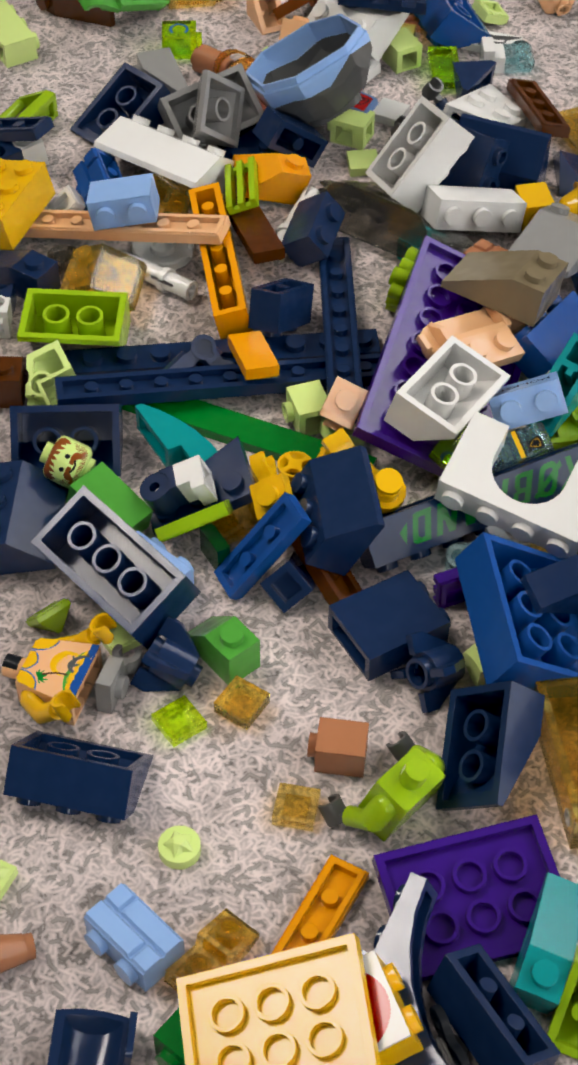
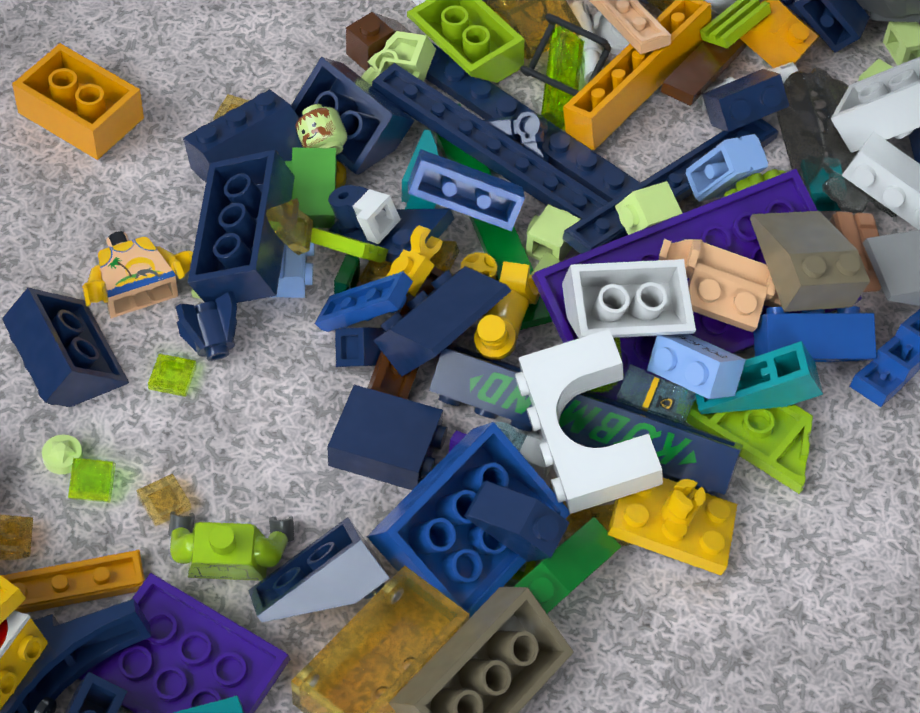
camera: 45 degrees right, 5 degrees up
(52, 617) = (182, 233): lime slope -> none
(112, 680) = (159, 309): light grey plate -> none
(152, 531) = (291, 225): none -> clear yellow slope
(173, 303) = (564, 66): none -> clear neon green plate
(200, 306) = (553, 20): none -> black piece
(227, 646) = (259, 353): bright green slope -> none
(230, 416) = (466, 190): none -> blue brick
(230, 842) = (91, 480): none -> clear neon green plate
(241, 702) = (222, 399): clear yellow plate -> none
(253, 355) = (557, 160): light orange tile -> none
(280, 306) = (631, 140): dark blue brick -> none
(339, 747) = (237, 487): nougat brick -> none
(342, 404) = (558, 247): light nougat bracket -> none
(369, 332) = (647, 207): none -> yellowish green brick
(374, 272) = (725, 166): none -> light blue brick
(433, 668) = (369, 494): dark blue brick -> none

